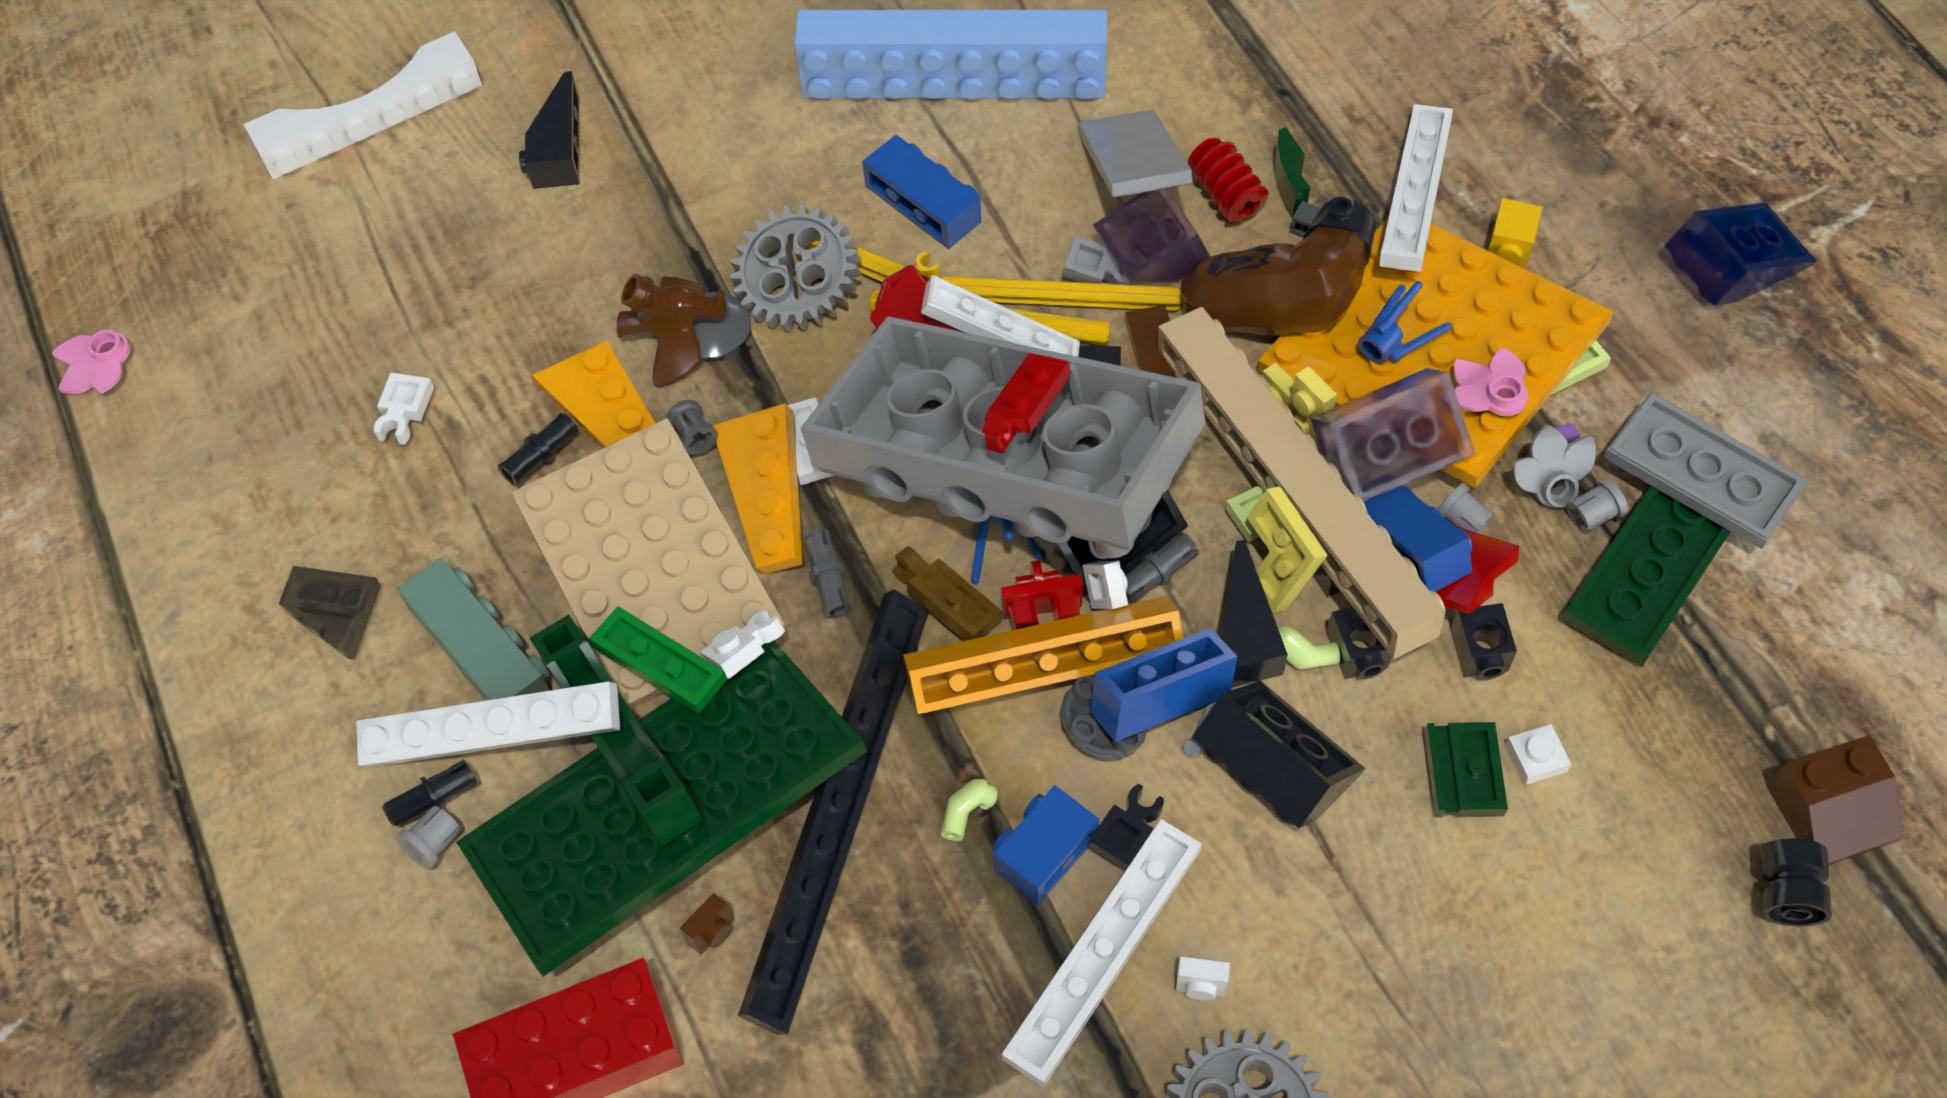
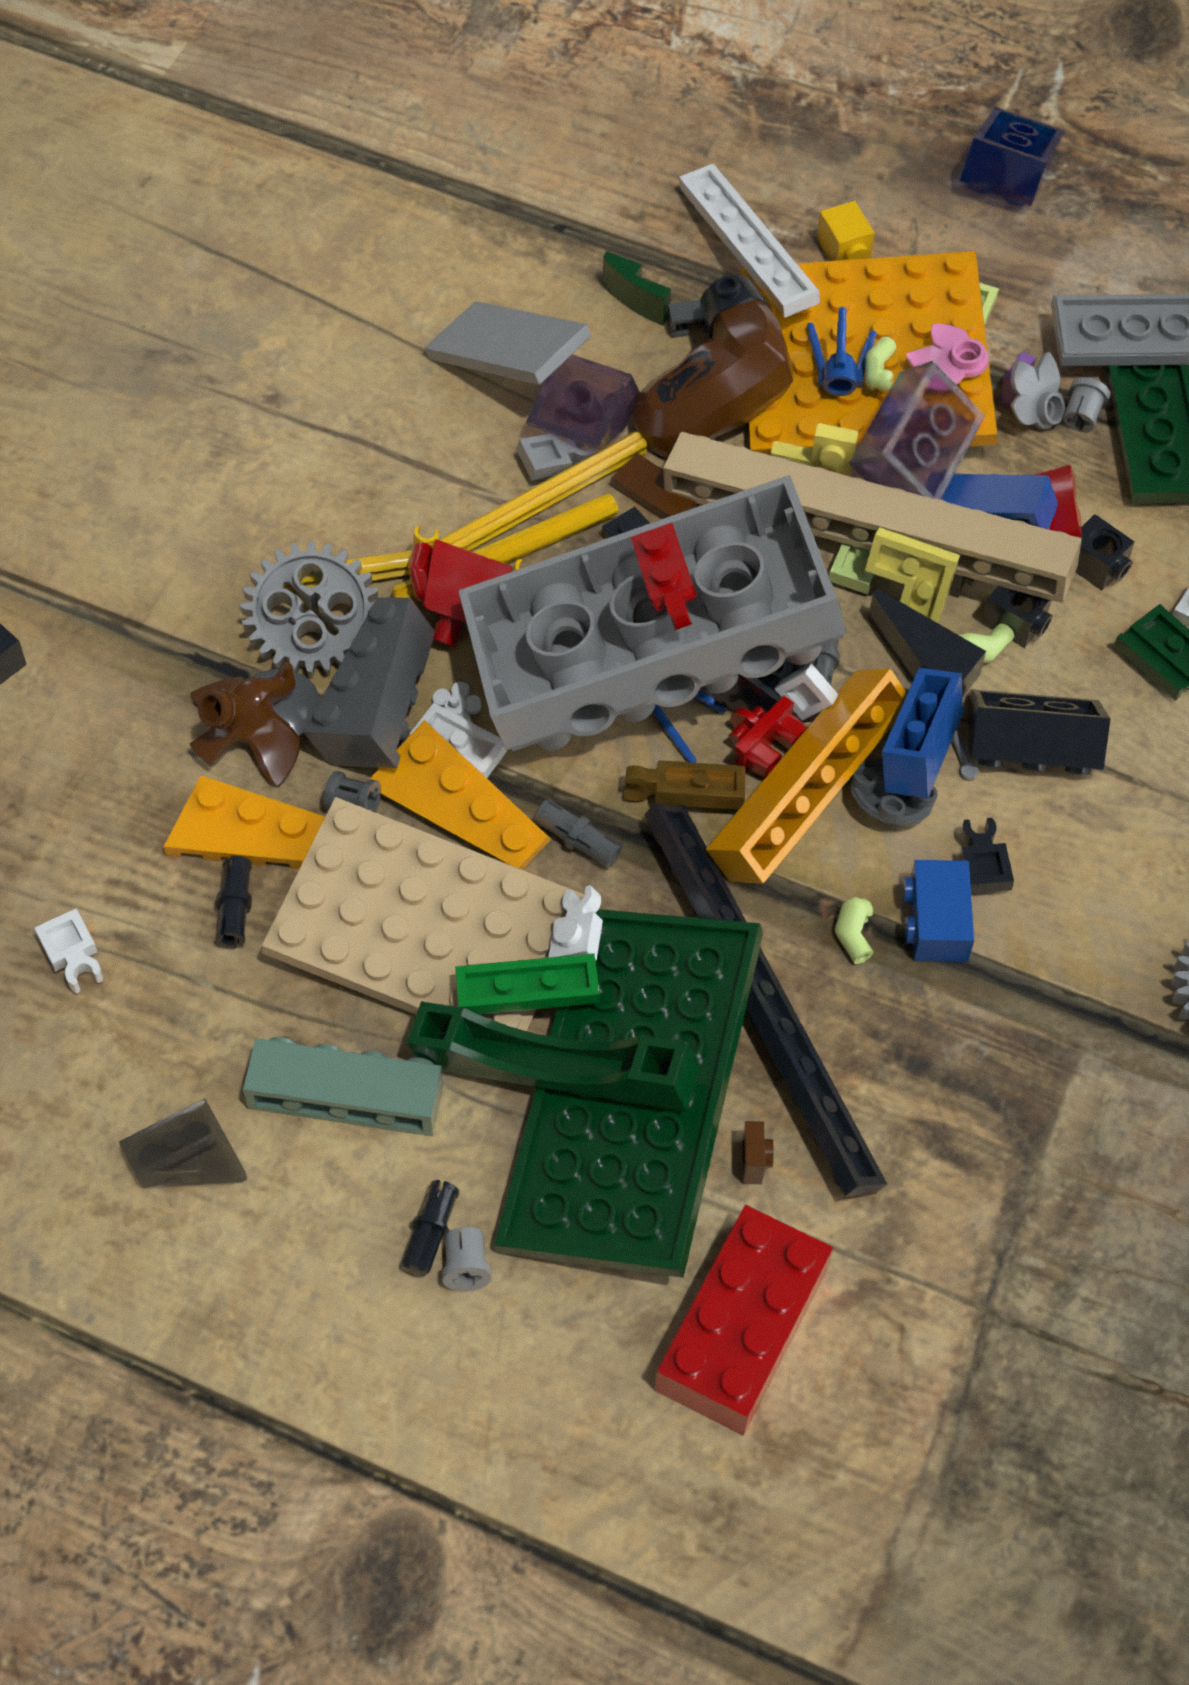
camera: 45 degrees left, 0 degrees up
(488, 725) = (436, 1136): white plate -> none
(780, 352) = (373, 687): none -> dark grey wedge
(922, 191) = (352, 481): blue brick -> none
(952, 53) = (271, 351): light blue brick -> none
(987, 319) = (527, 546): white tile -> none
(1101, 953) = (1050, 959): white plate -> none
(1202, 978) = (1134, 921): white plate -> none
(1227, 179) = (605, 327): red piece -> none
(1420, 348) = (875, 360): none -> yellowish green arm
(1465, 510) = (1001, 462): light grey bush -> none

